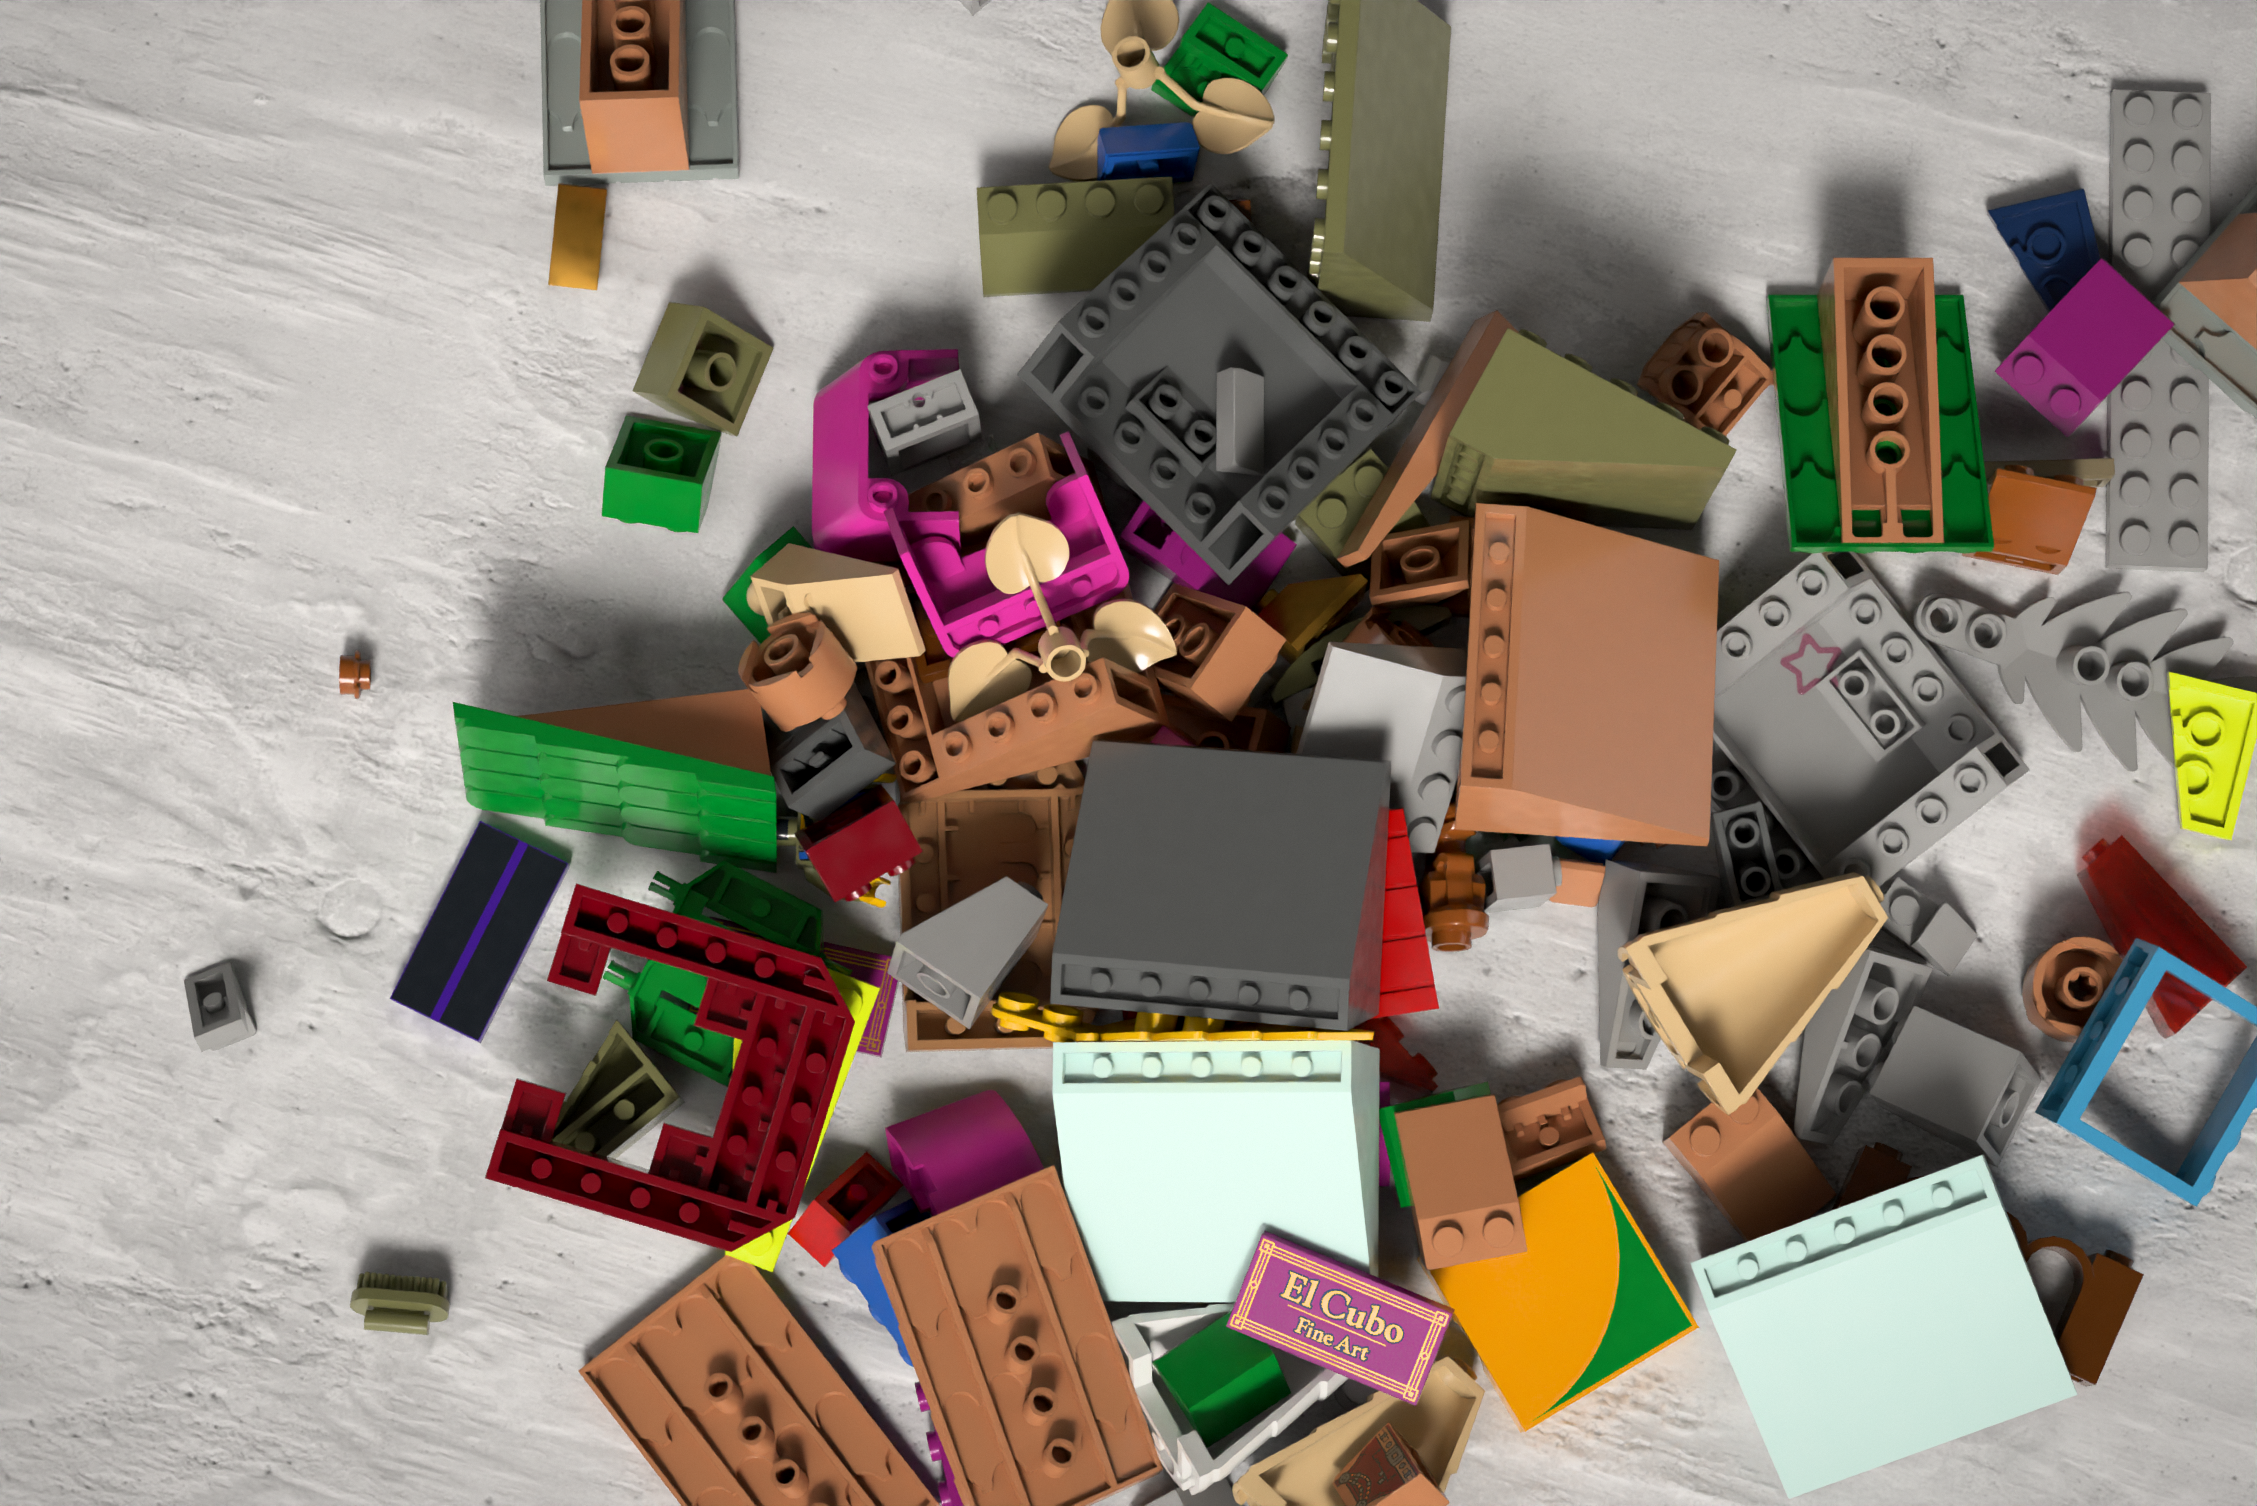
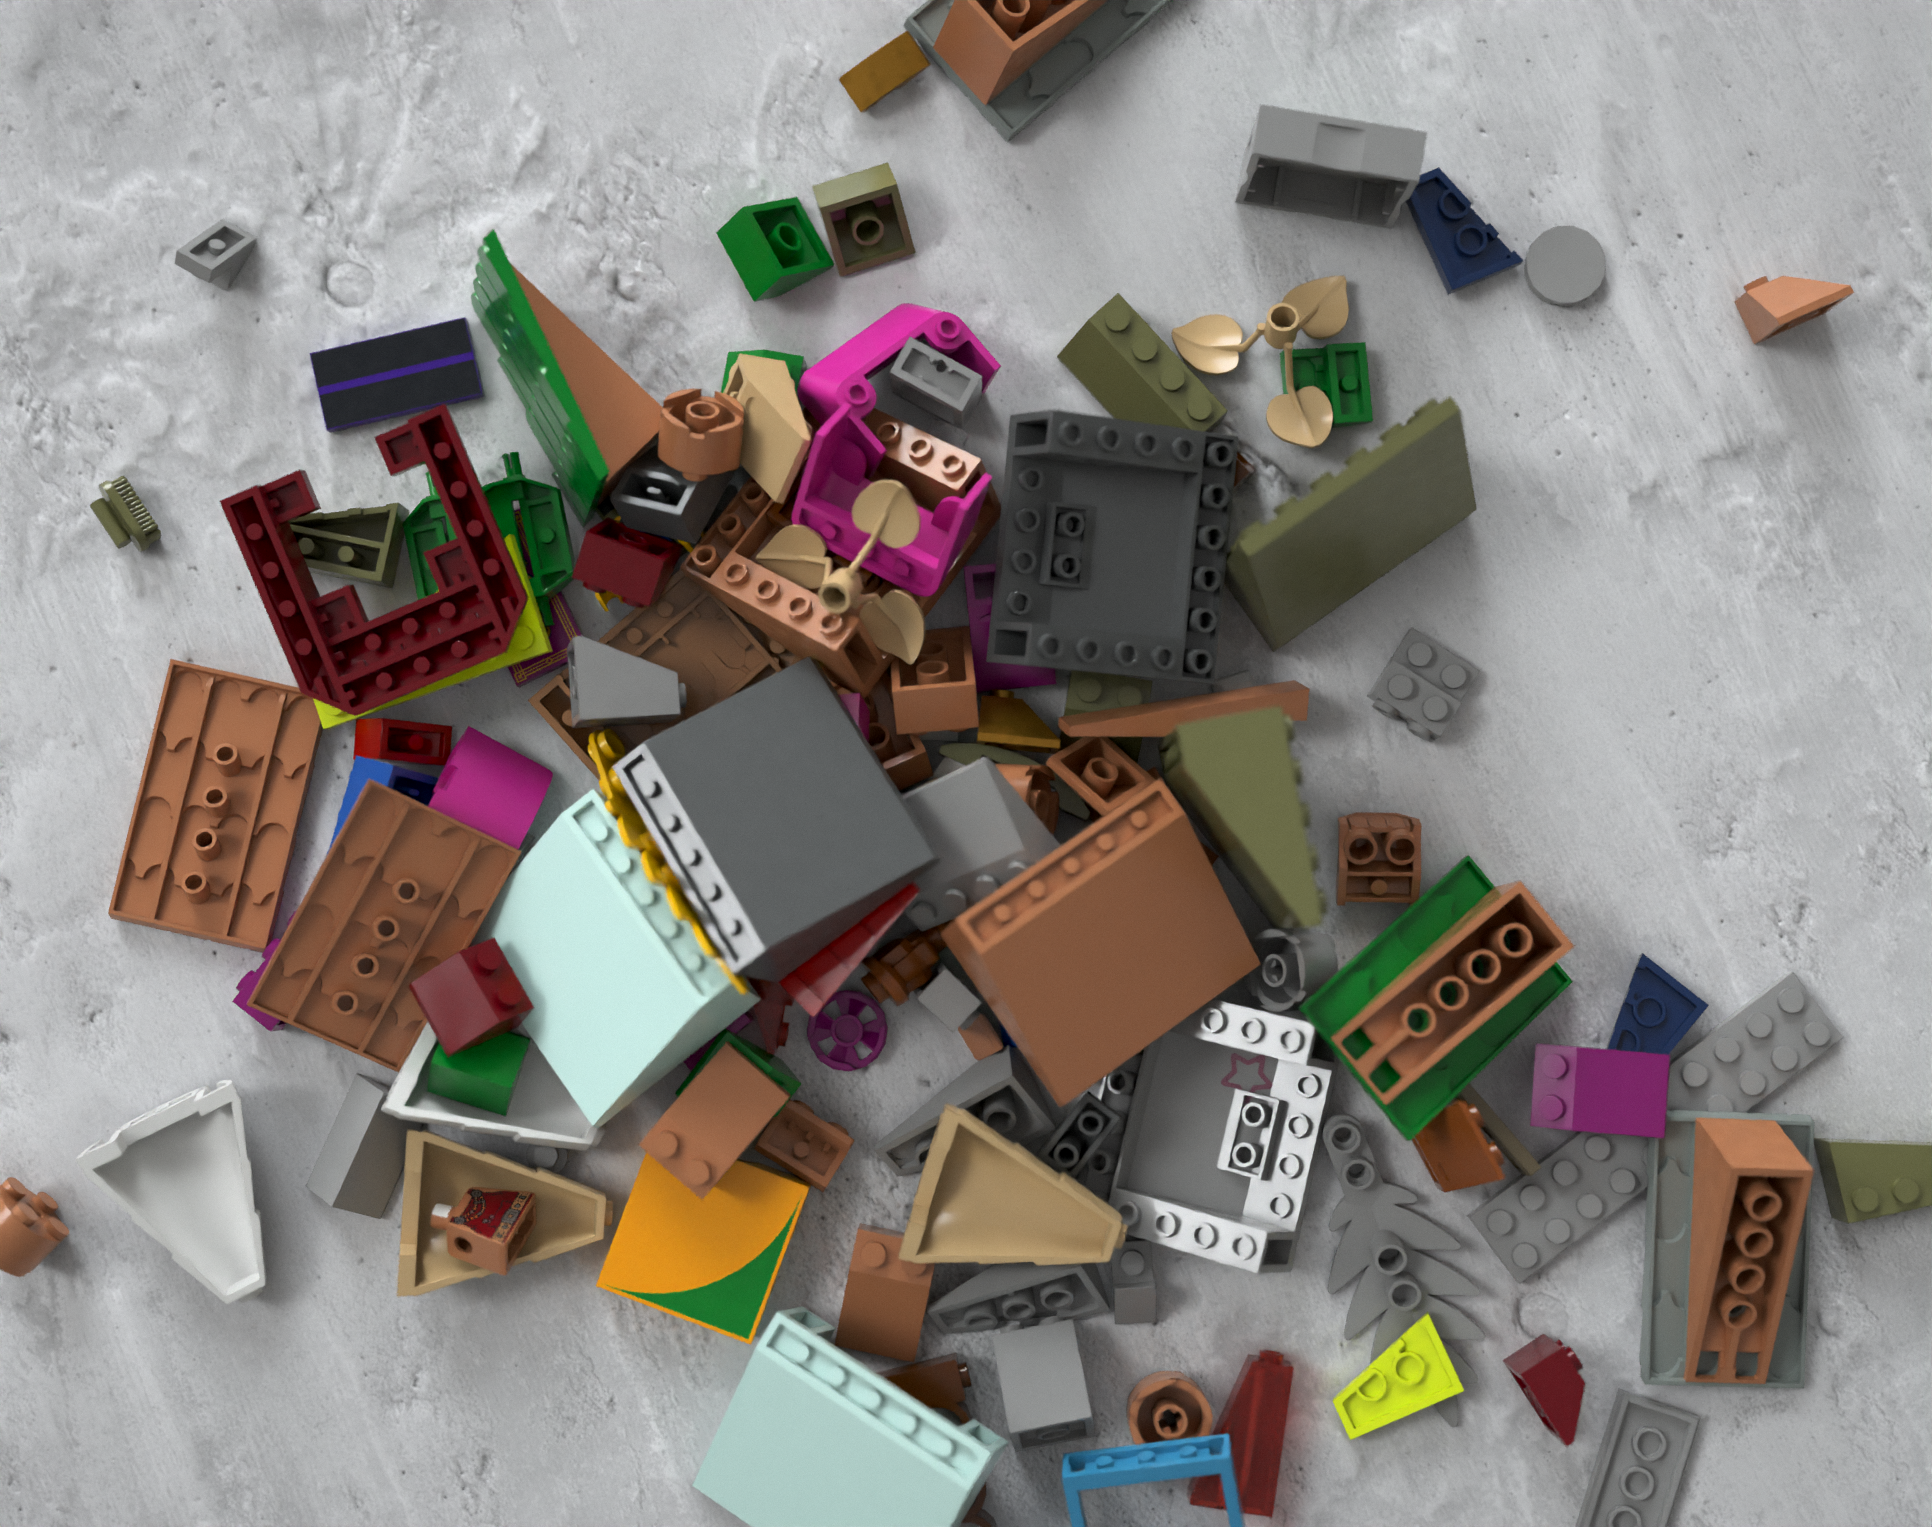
camera: 55 degrees right, 5 degrees up
(354, 674) = (494, 164): dark orange plate -> none
(1147, 152) = (1233, 383): blue slope -> none
(1156, 1323) = (471, 997): none -> dark red slope
(1240, 422) = (1096, 583): light grey slope -> none
(1340, 1318) = (565, 1113): magenta tile -> none
(1470, 1005) = (848, 1031): none -> magenta piece
(1574, 209) = (1422, 685): none -> light grey plate
(1747, 535) = (1291, 967): none -> light grey brick

